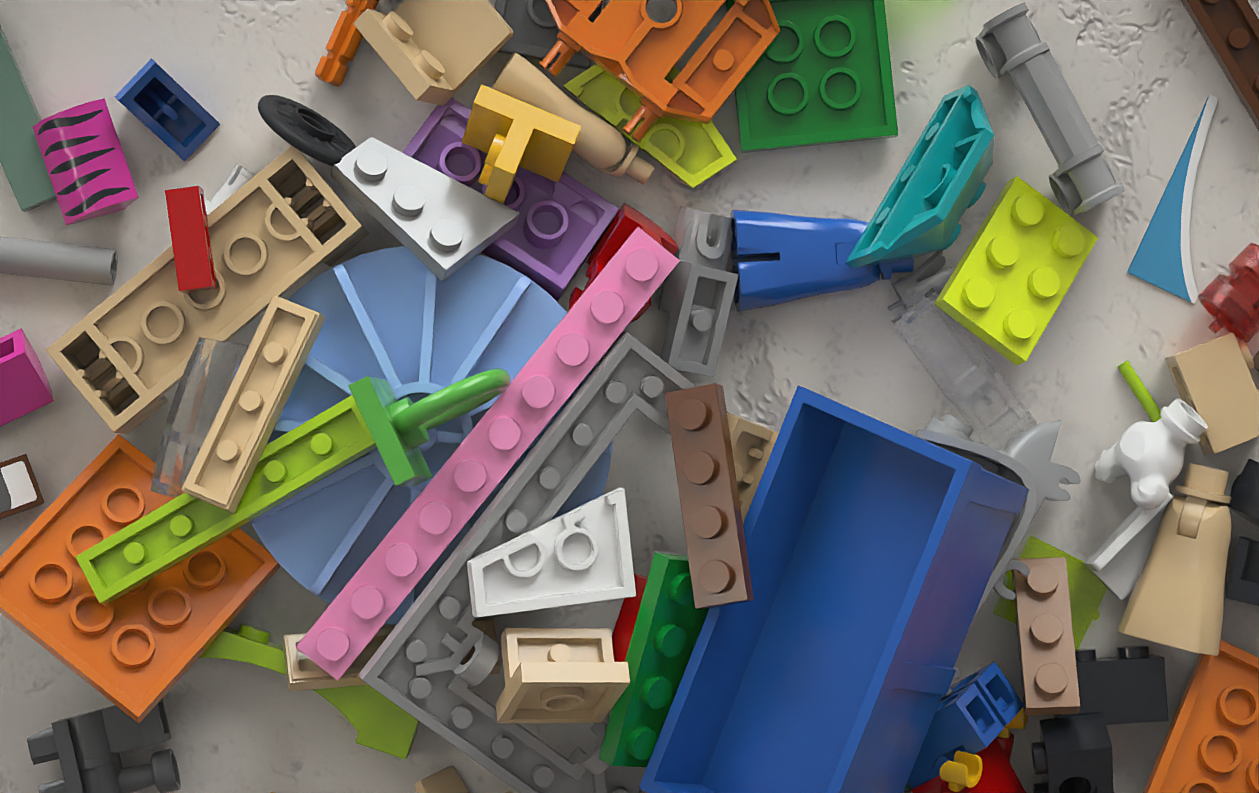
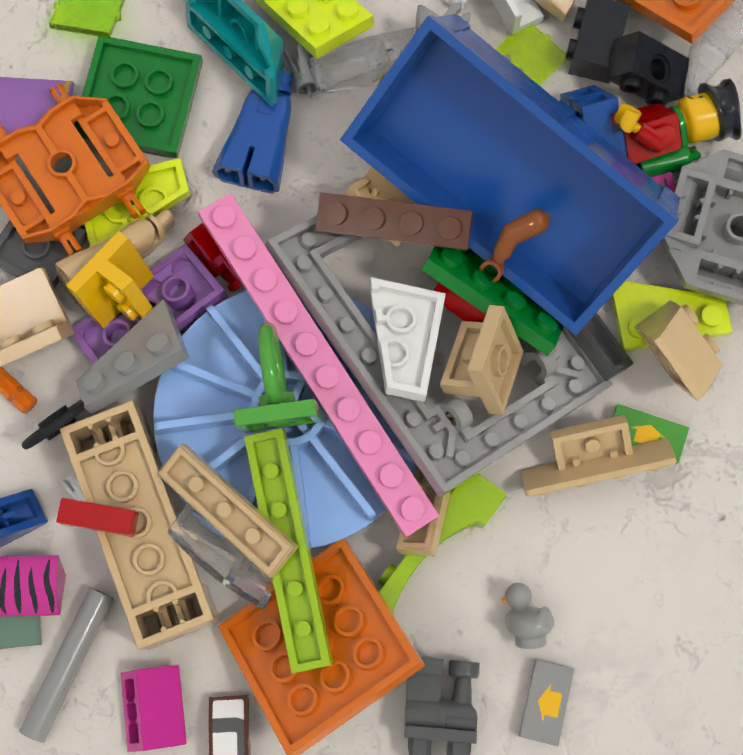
camera: 70 degrees left, 10 degrees down
(698, 292) = (259, 200): light grey plate -> none
(735, 665) = (514, 233): none -> dark orange arm
(1045, 638) = (558, 60): medium nougat plate -> none

